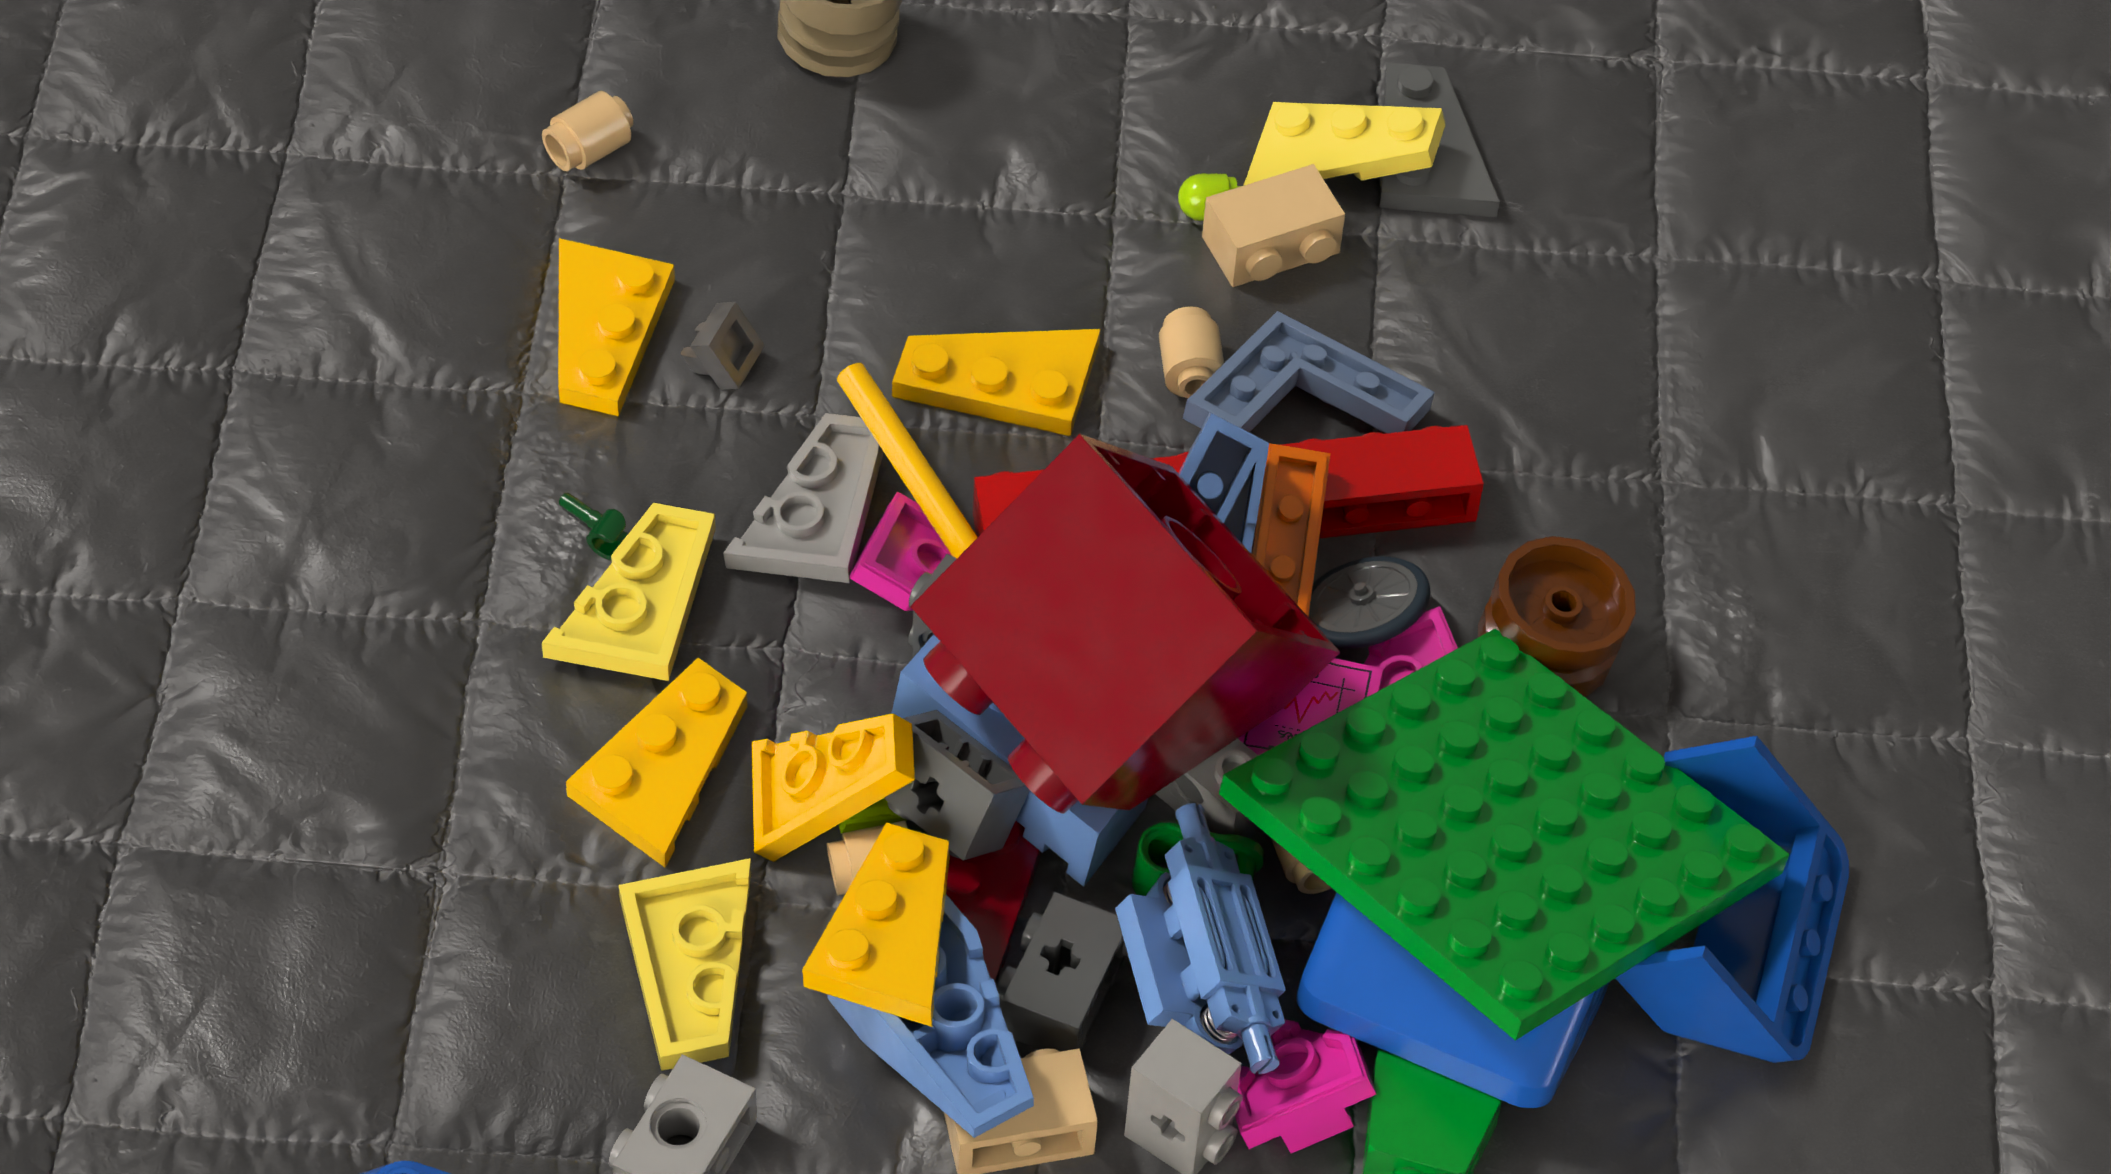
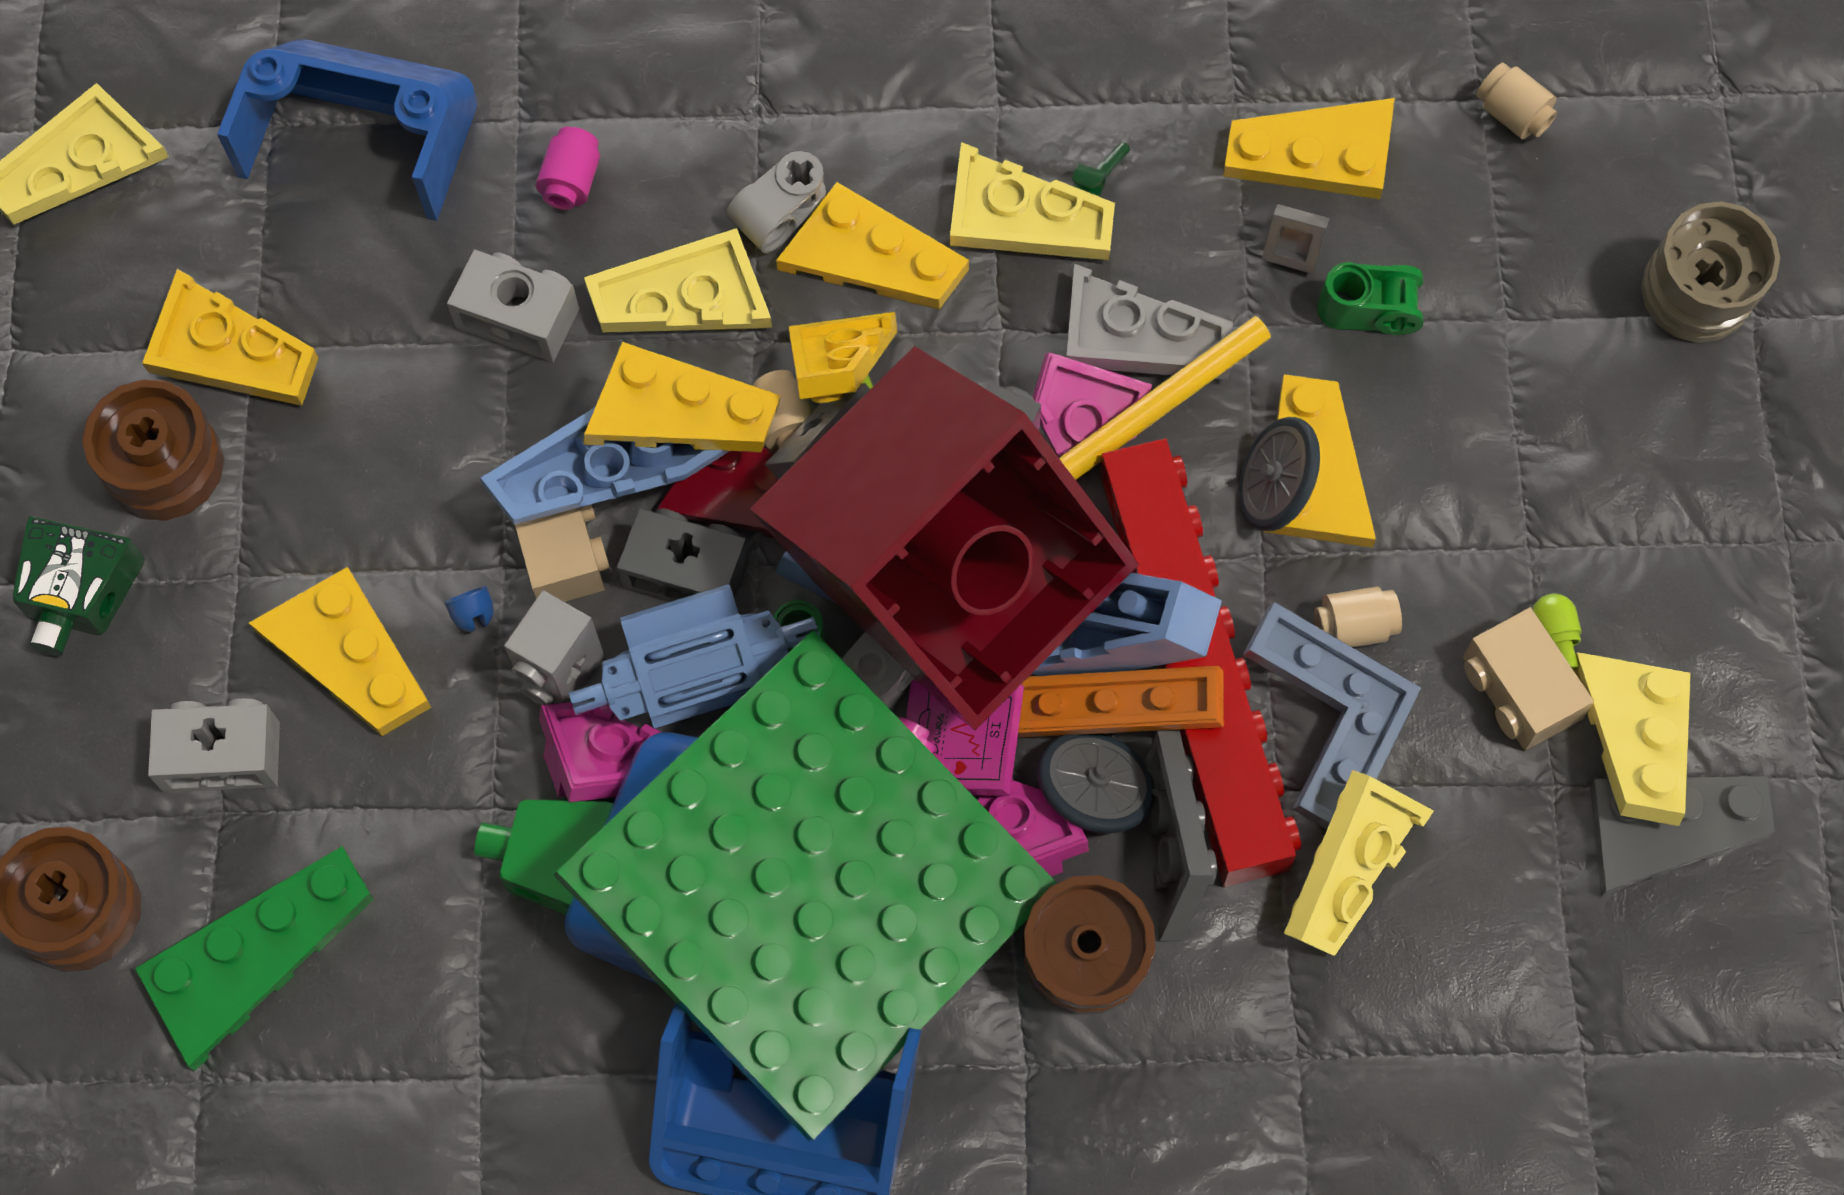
camera: 90 degrees right, 15 degrees up
(493, 1069) = (568, 168): none -> dark pink brick
(586, 837) = (779, 201): none -> light grey piece
(812, 294) = (1377, 298): none -> green piece
(1026, 387) = (1279, 474): none -> dark grey wheel
(1445, 525) = (1182, 856): none -> dark grey wing
(1471, 396) = (1354, 851): none -> light yellow wing

